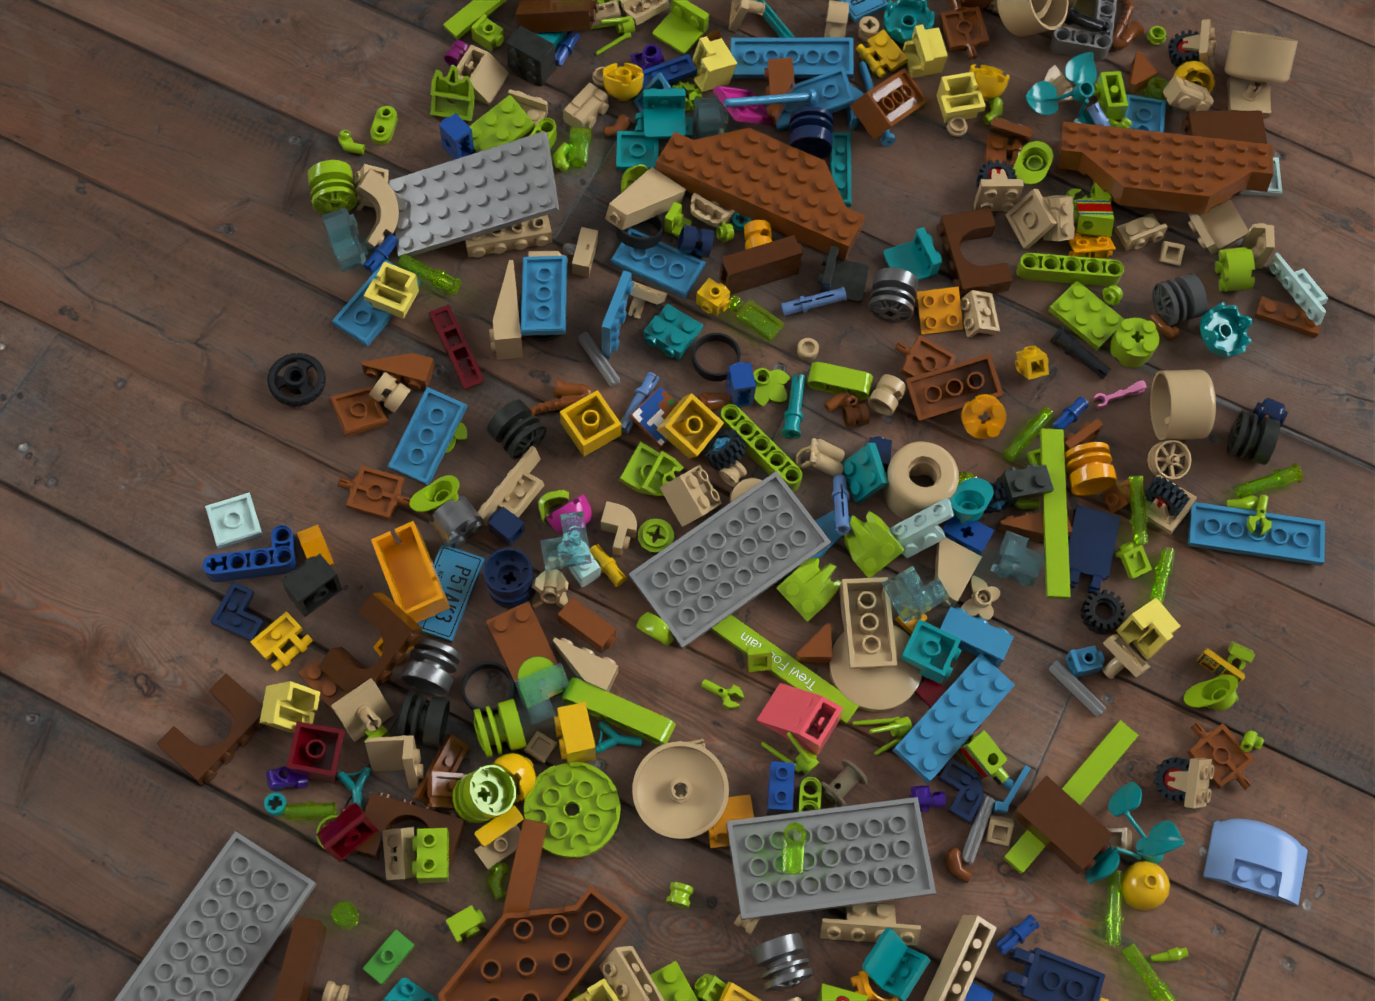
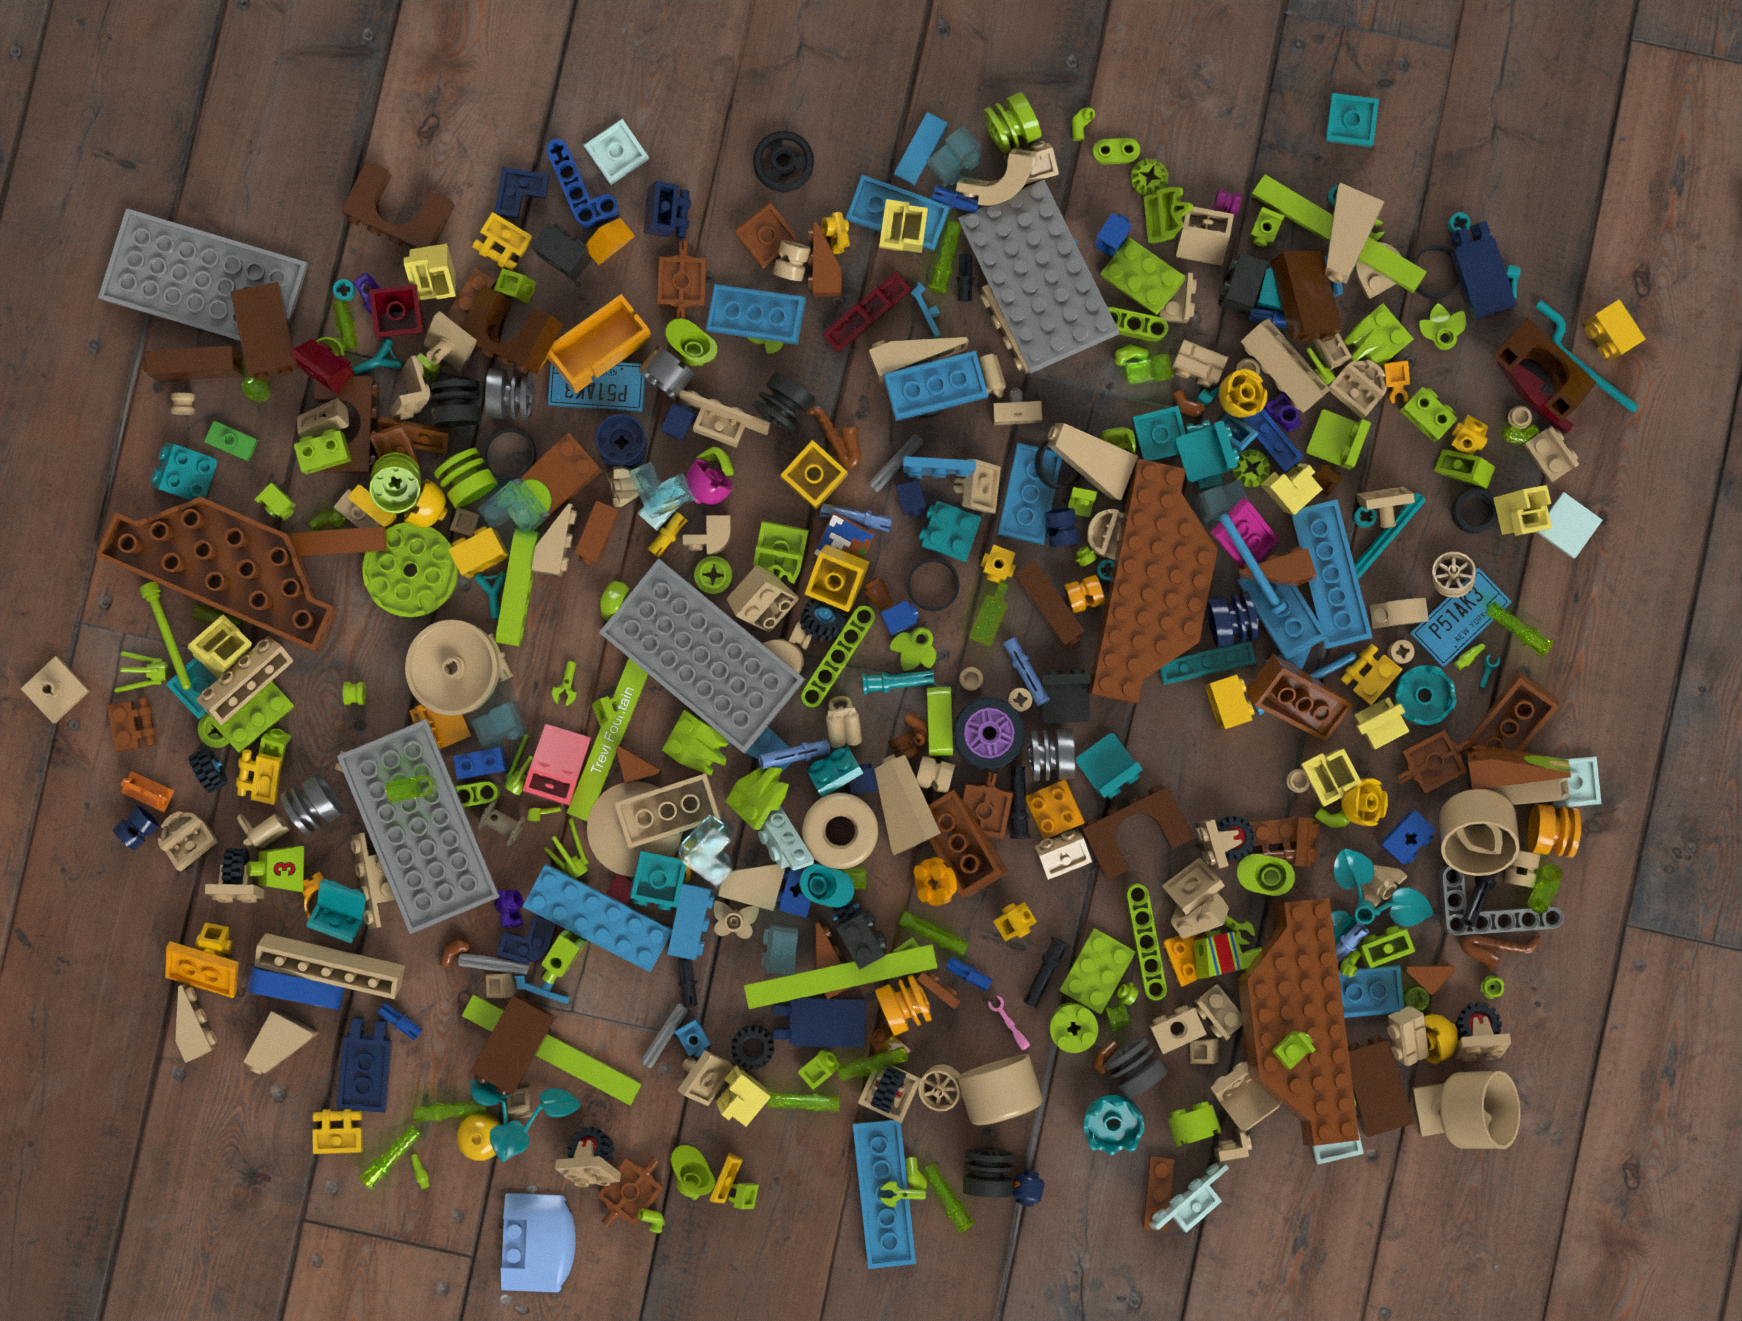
camera: 85 degrees right, 20 degrees up
(291, 884) = (264, 331): none -> reddish brown brick
(304, 488) = (662, 208): none -> dark blue brick
(326, 270) = (920, 149): none -> dark azure tile
(327, 637) = (515, 285): none -> lime bracket
(374, 350) = (837, 229): none -> yellow plate
(415, 114) = (1139, 181): none -> lime gear
(453, 263) = (965, 278): none -> black axle
(472, 301) = (929, 313): none -> dark azure piece
(608, 45) = (1285, 365): none -> tan brick
(615, 111) = (1206, 397): none -> teal hand
(635, 351) = (911, 498): none -> dark blue brick
(746, 754) = (500, 724): none -> clear light blue brick
(749, 33) = (1365, 524): none -> teal bush
(834, 318) = (1019, 702): none -> tan wheel
(840, 753) = (535, 813): none -> lime hand
(862, 339) = (1007, 728): none -> wheel
(880, 153) = (1229, 702): none -> yellow brick
(911, 422) = (904, 805): none -> tan slope
(940, 338) = (1019, 814): none -> black pin
(1022, 61) = (1395, 840): none -> blue brick
(1031, 654) = (687, 982): none -> black axle
(1131, 306) = (1118, 1016): none -> clear neon green wheel
(1153, 255) = (1191, 1029): none -> tan brick
(1189, 164) = (1293, 1048): none -> lime bracket

